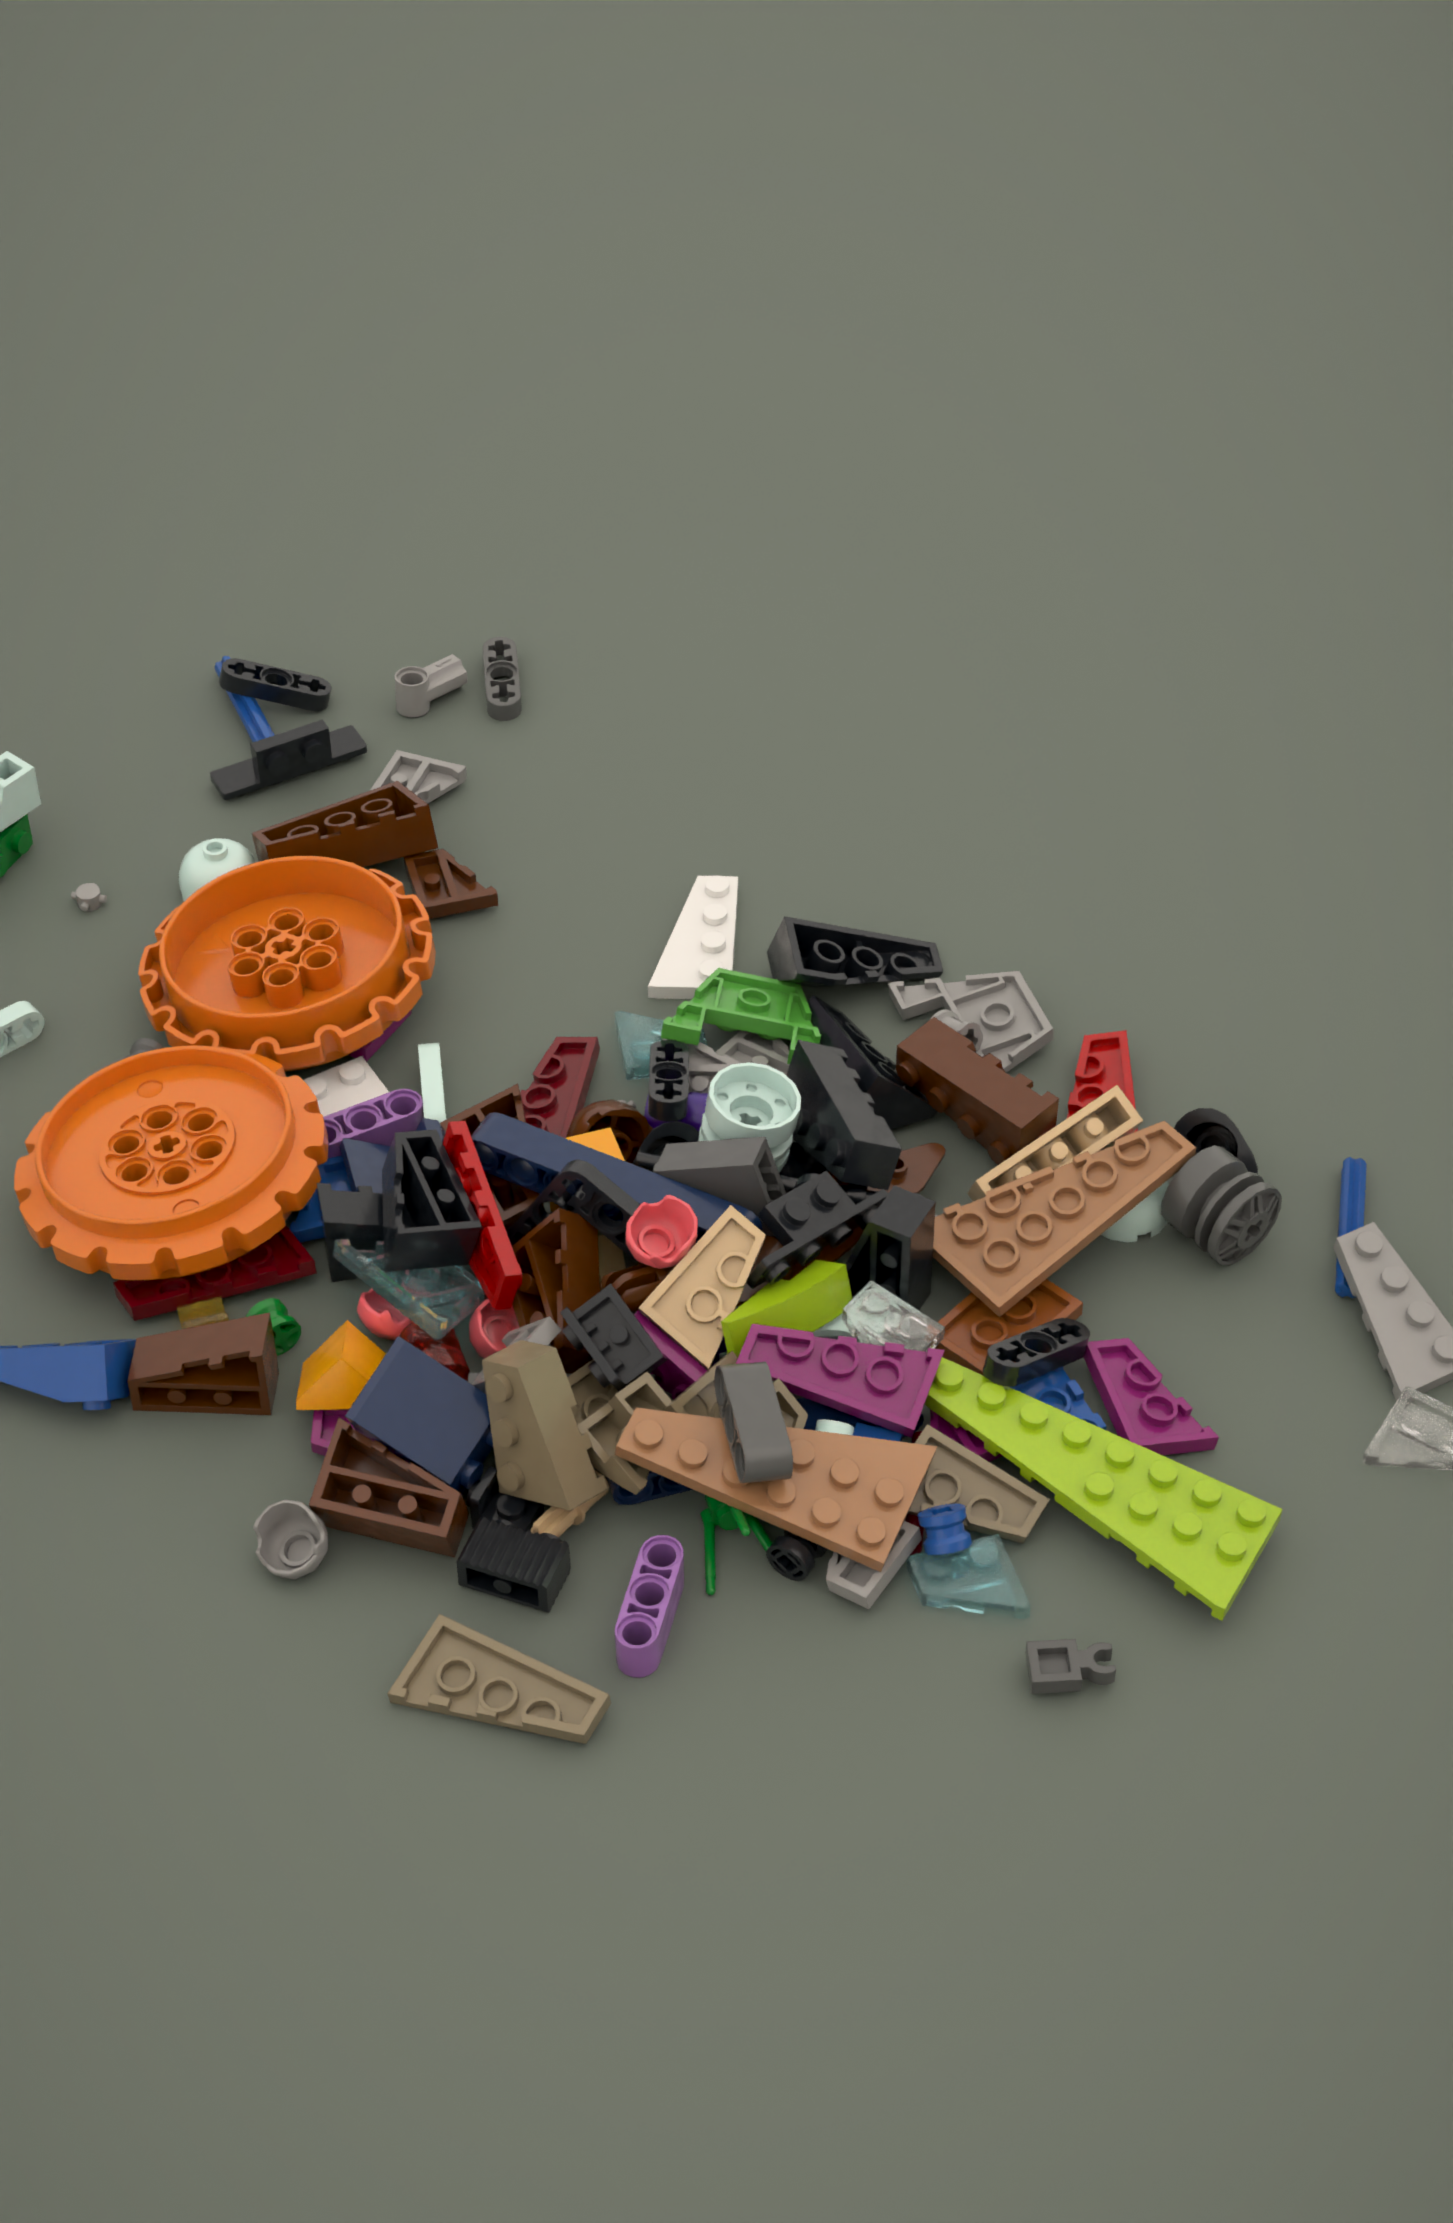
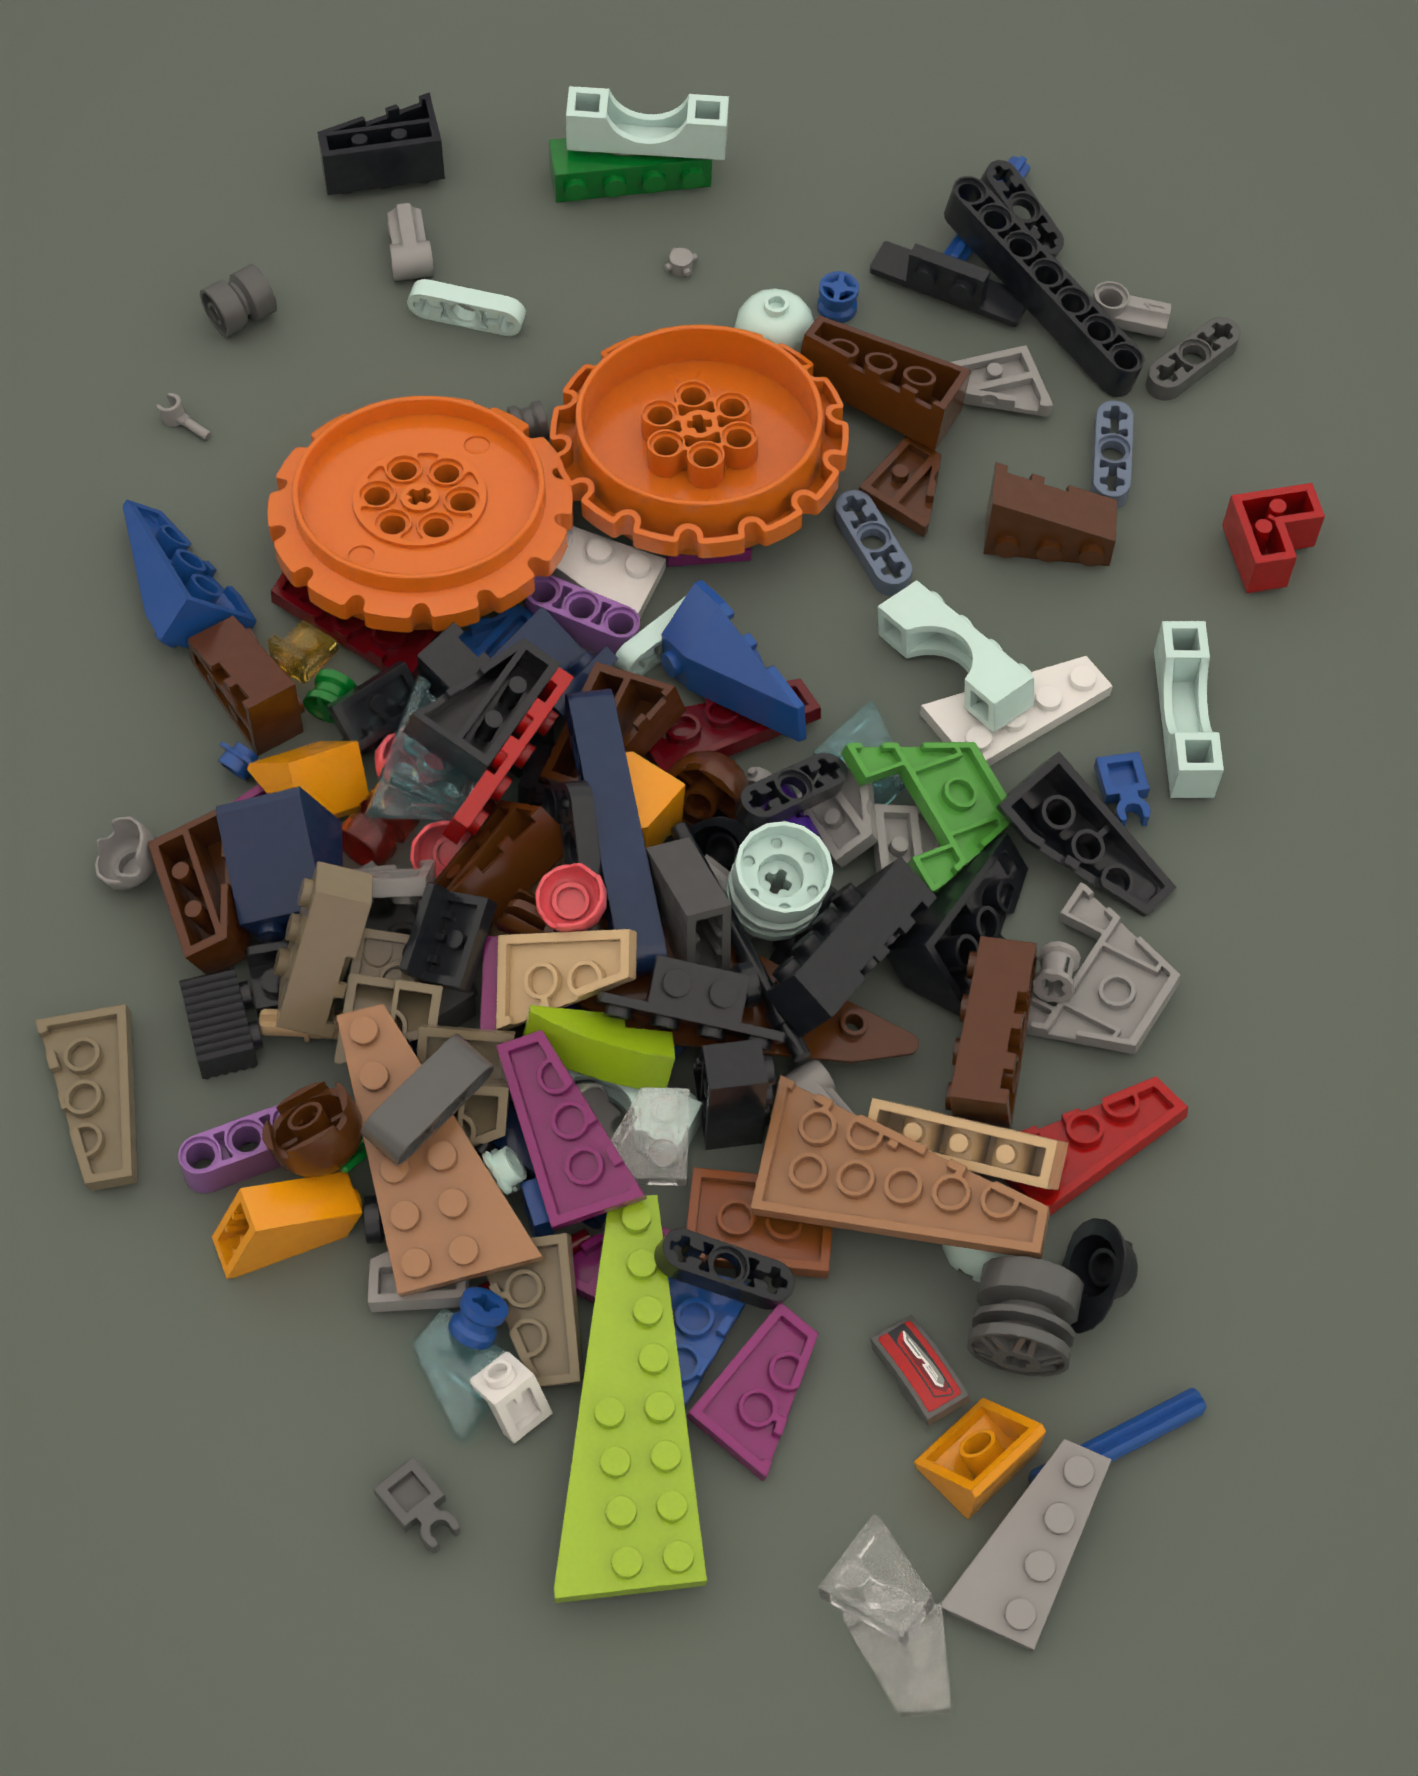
camera: 50 degrees right, 15 degrees up
(231, 822) = (834, 287): none -> blue wheel
(273, 1419) = (237, 759): none -> blue plate
(324, 1292) = (373, 707): none -> black bracket
(358, 707) = (1043, 286): none -> black beam
(491, 1055) = (725, 667): none -> blue wedge
(503, 929) = (872, 559): none -> sand blue beam
(557, 780) = (1120, 441): none -> sand blue beam
(564, 826) = (1047, 522): none -> reddish brown wedge
(584, 940) = (922, 624): none -> light aqua arch
(698, 1524) = (315, 1130): none -> reddish brown cylinder
(701, 722) = (1267, 529): none -> red brick
(743, 1617) = (285, 1220): none -> light orange slope
(765, 828) = (1190, 744): none -> light aqua arch
(830, 911) = (1125, 782): none -> blue plate
(1027, 1544) = (512, 1396): none -> white bracket
(1215, 1298) = (921, 1370): none -> slope
(1304, 1301) = (980, 1454): none -> light orange slope
(1361, 1414) = (878, 1584): none -> clear wing

